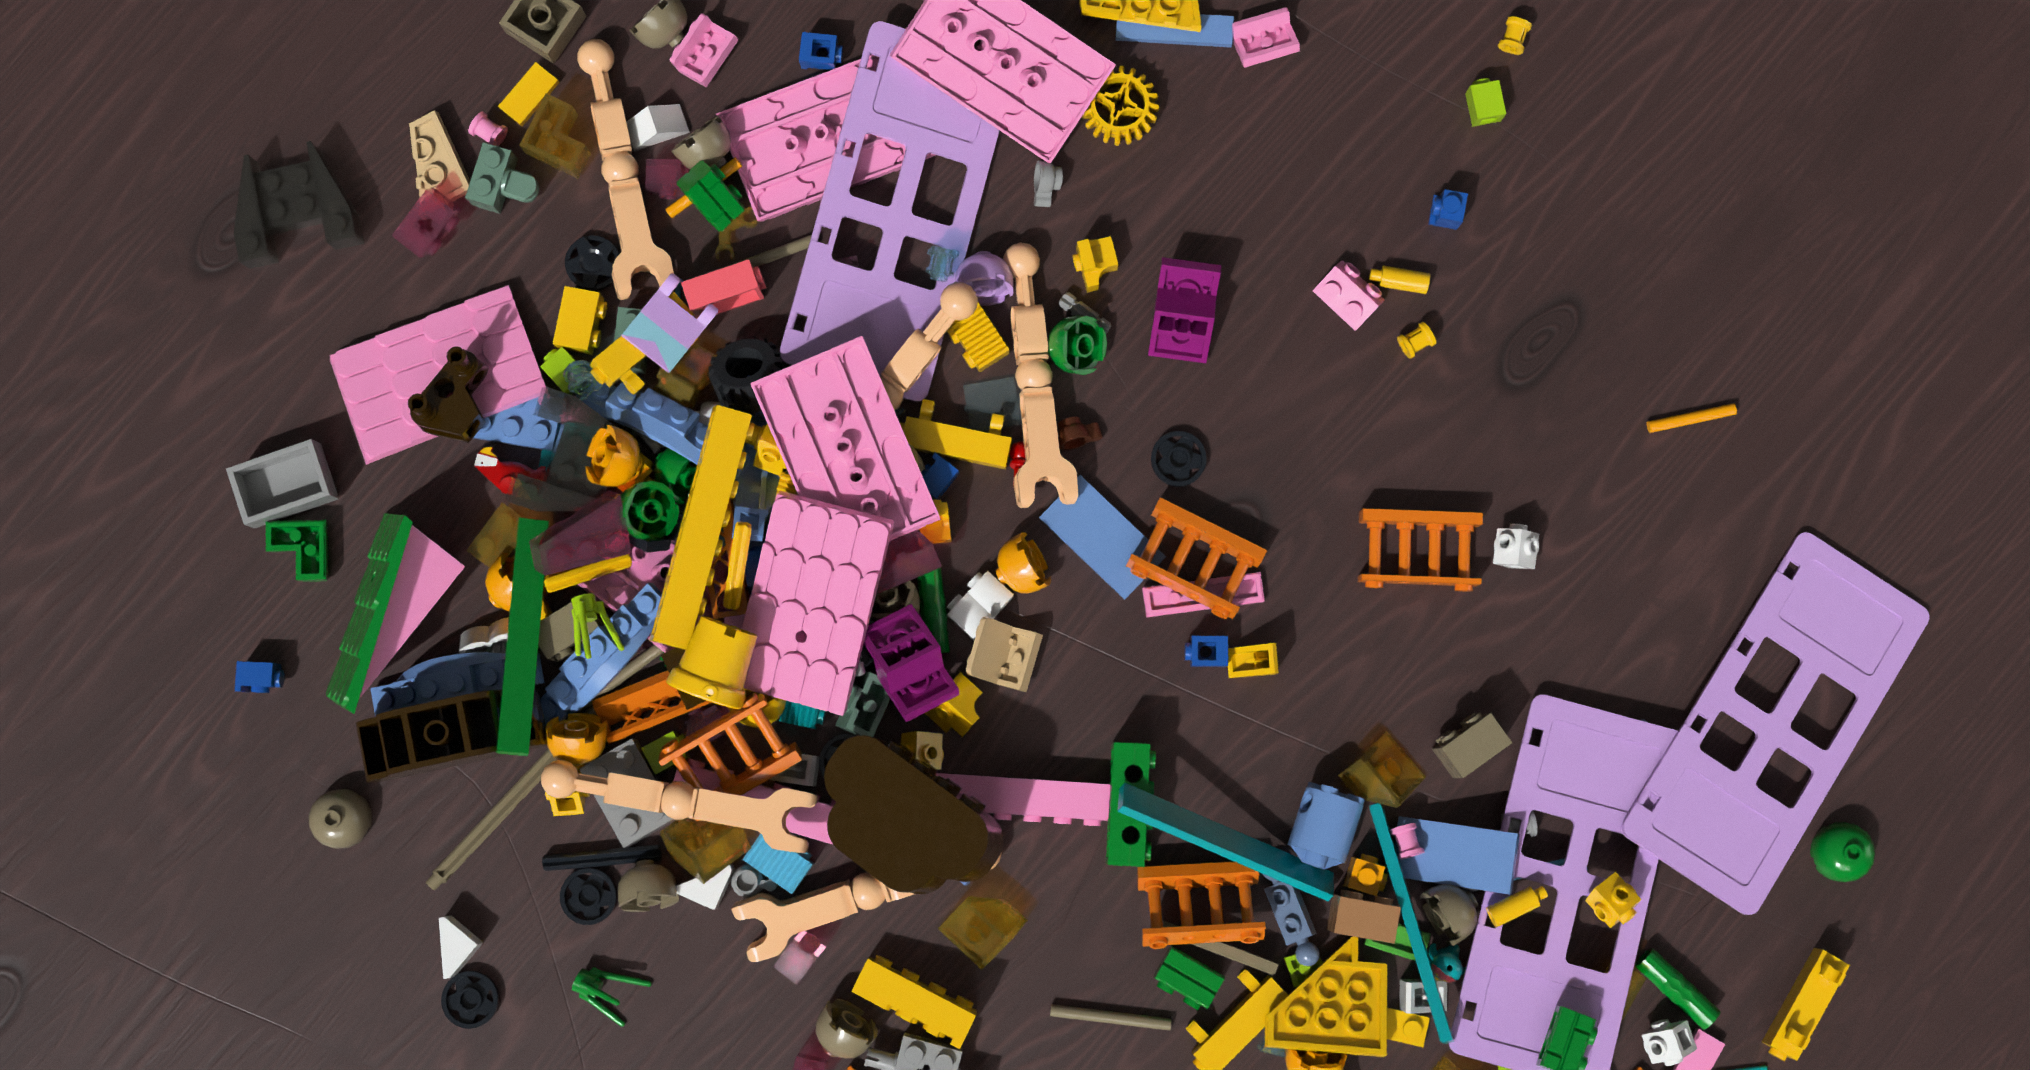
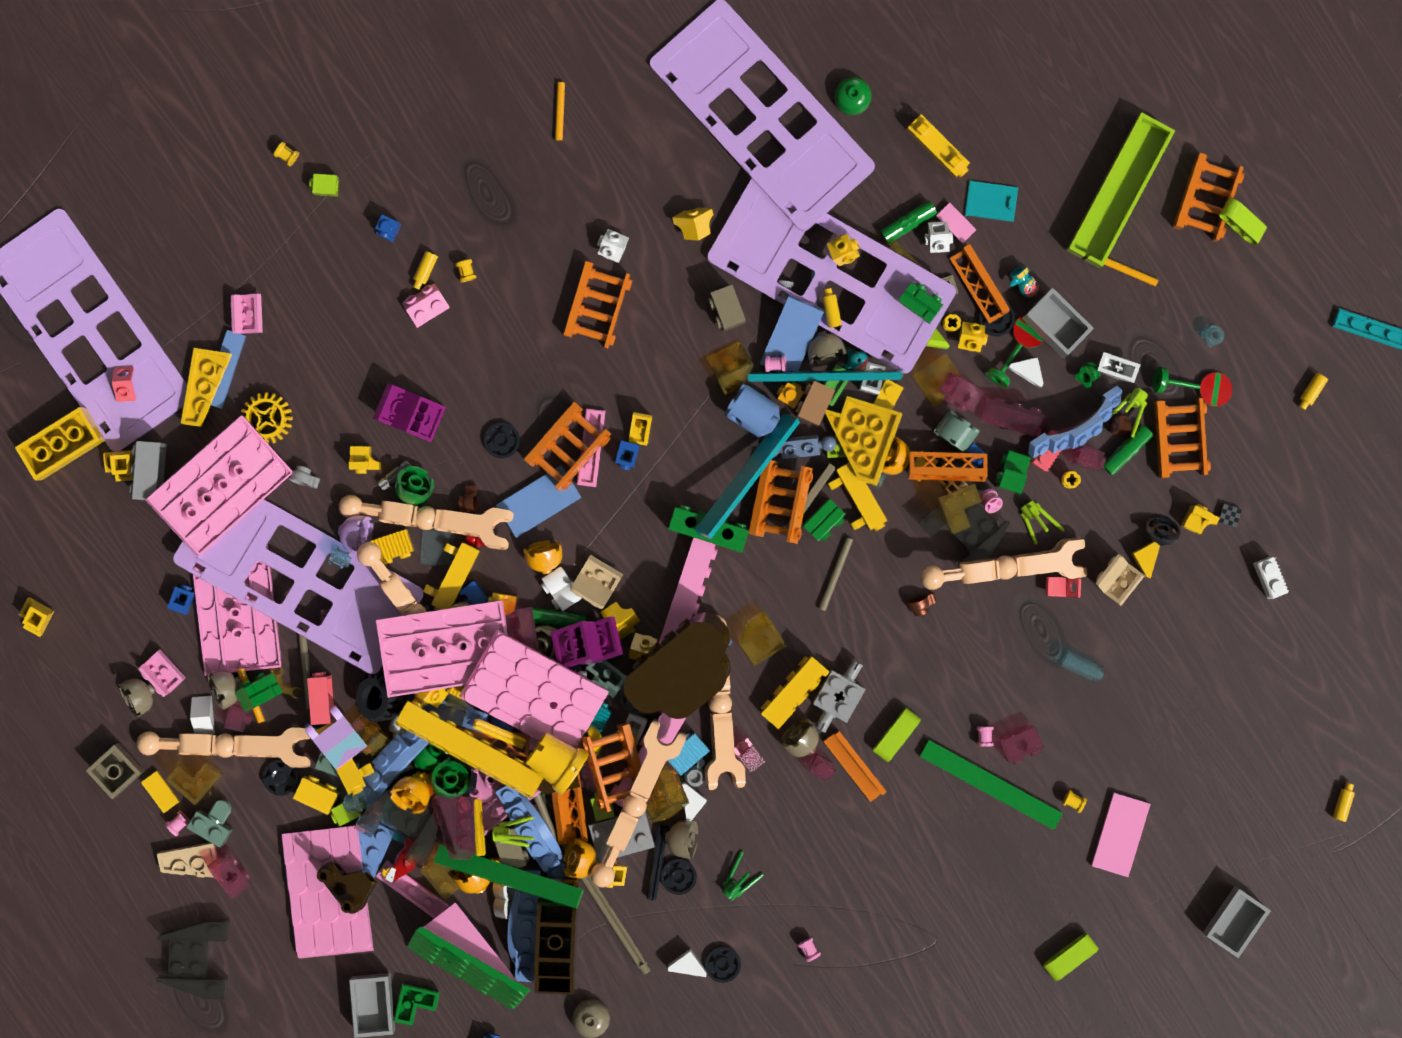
camera: 80 degrees left, 5 degrees up
(468, 506) = (415, 893): none -> bright pink tile
(1584, 661) = (694, 223): none -> yellow brick

